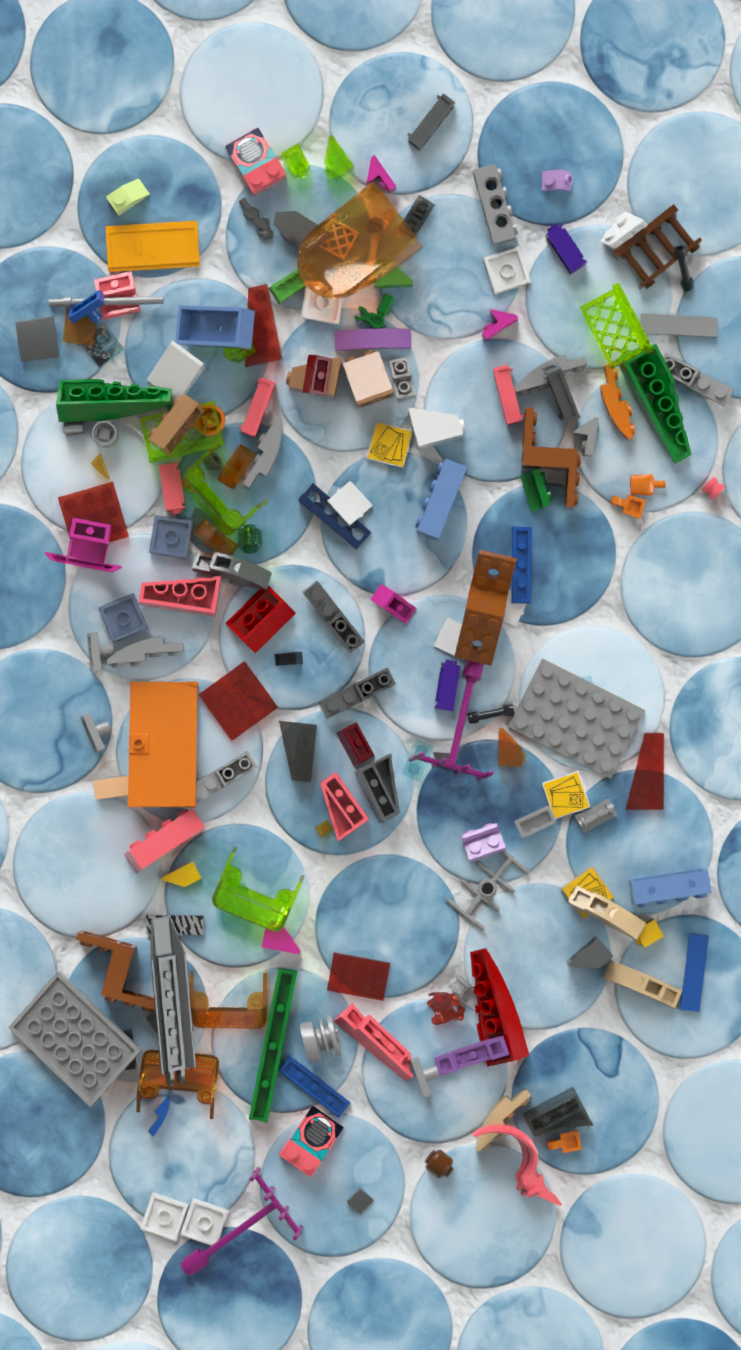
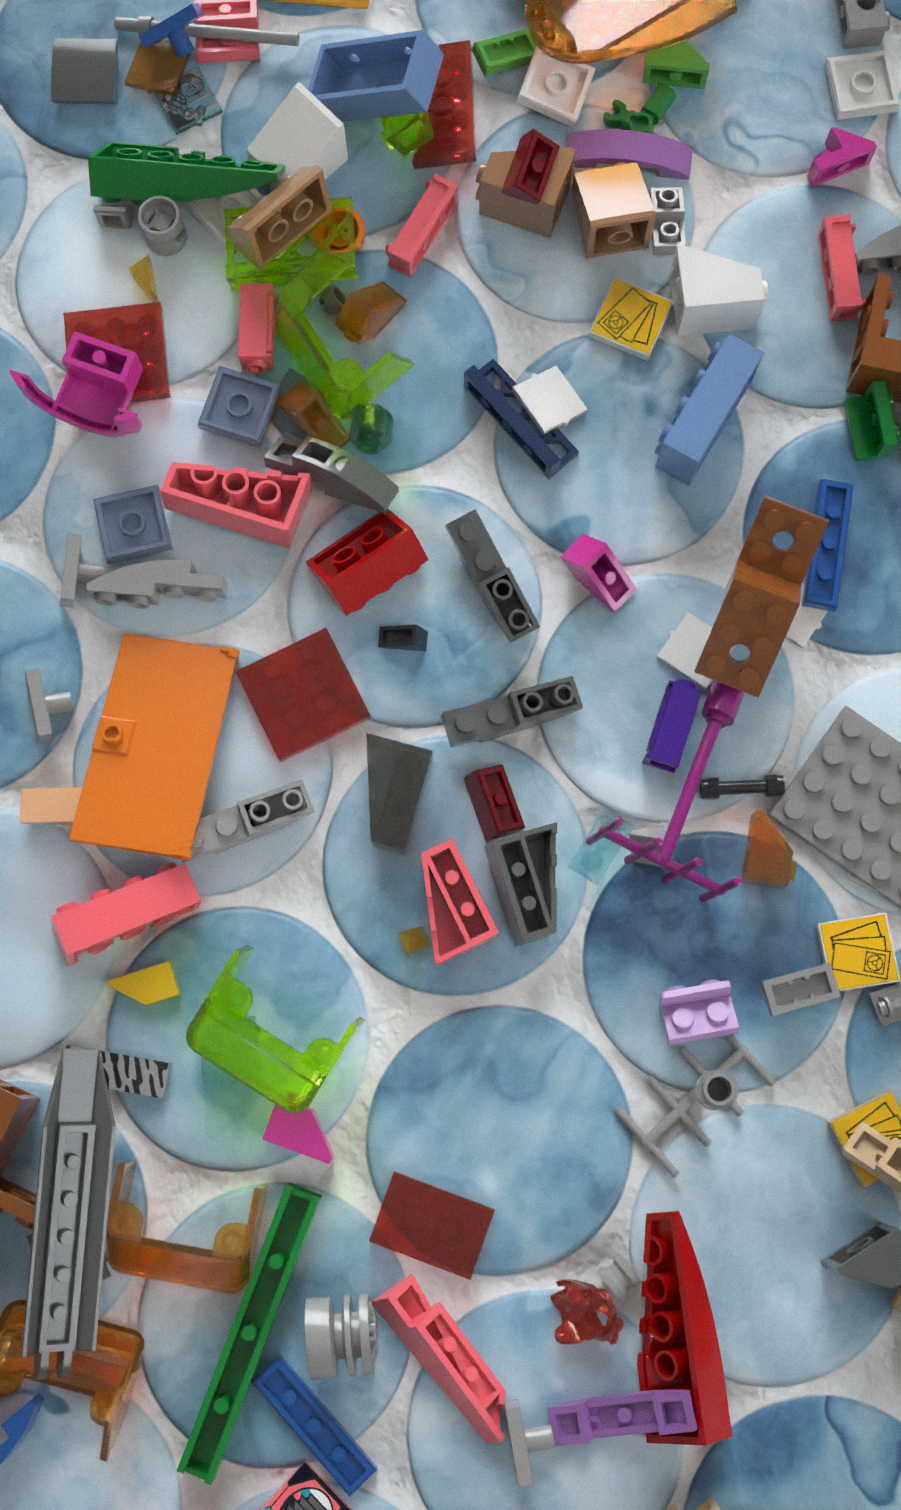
camera: 10 degrees right, 10 degrees down
(270, 446) = (429, 293): light grey slope -> none

